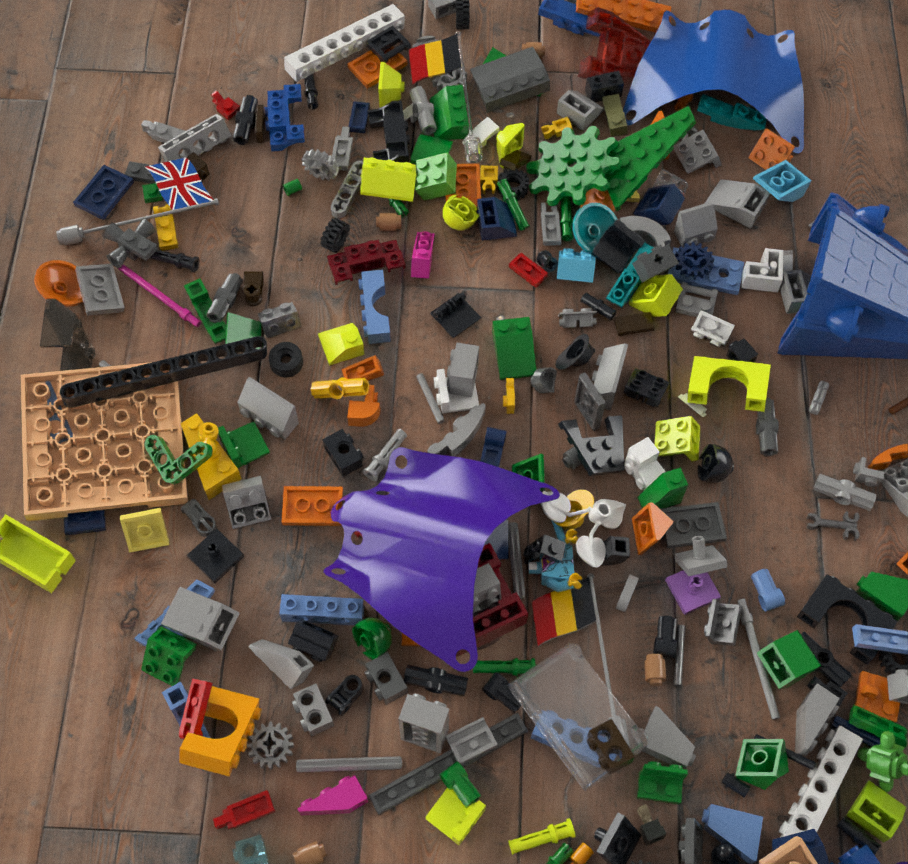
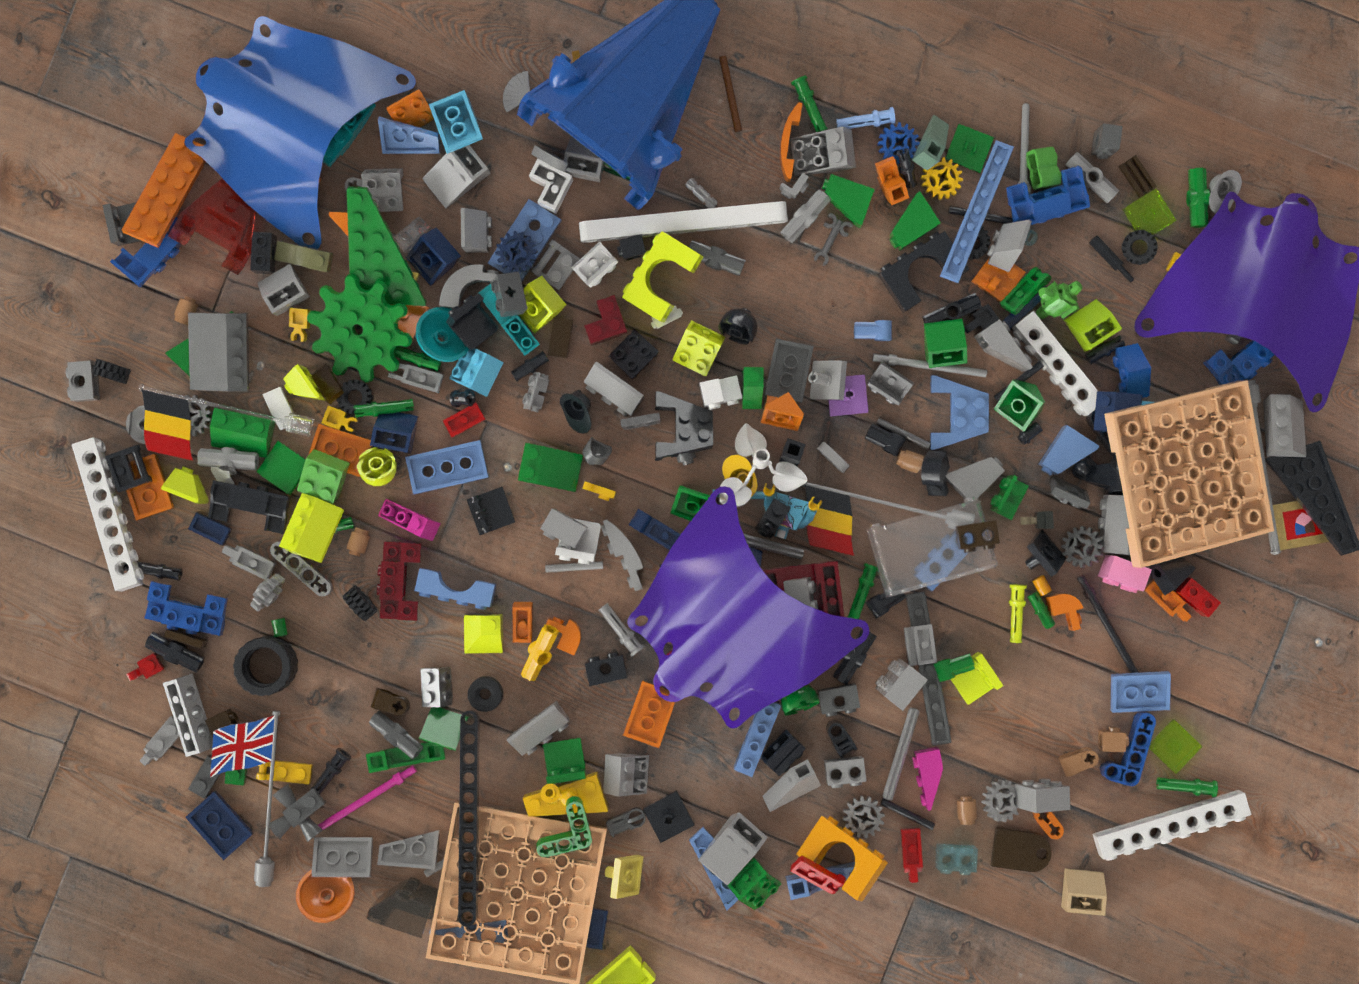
camera: 75 degrees left, 25 degrees up
(118, 343) = (411, 852): none -> light grey wing
(255, 166) = (242, 665): none -> black tyre
(287, 790) = (908, 814): none -> black bar
(476, 279) = (437, 458): none -> medium blue plate
(652, 693) = (934, 471): none -> black brick
(665, 356) = (610, 325): none -> dark red brick
(728, 713) = (967, 412): none -> medium blue wing
(747, 154) = (406, 139): none -> medium blue wing
(790, 394) = (683, 221): none -> white beam
(882, 526) = (849, 198): none -> green slope

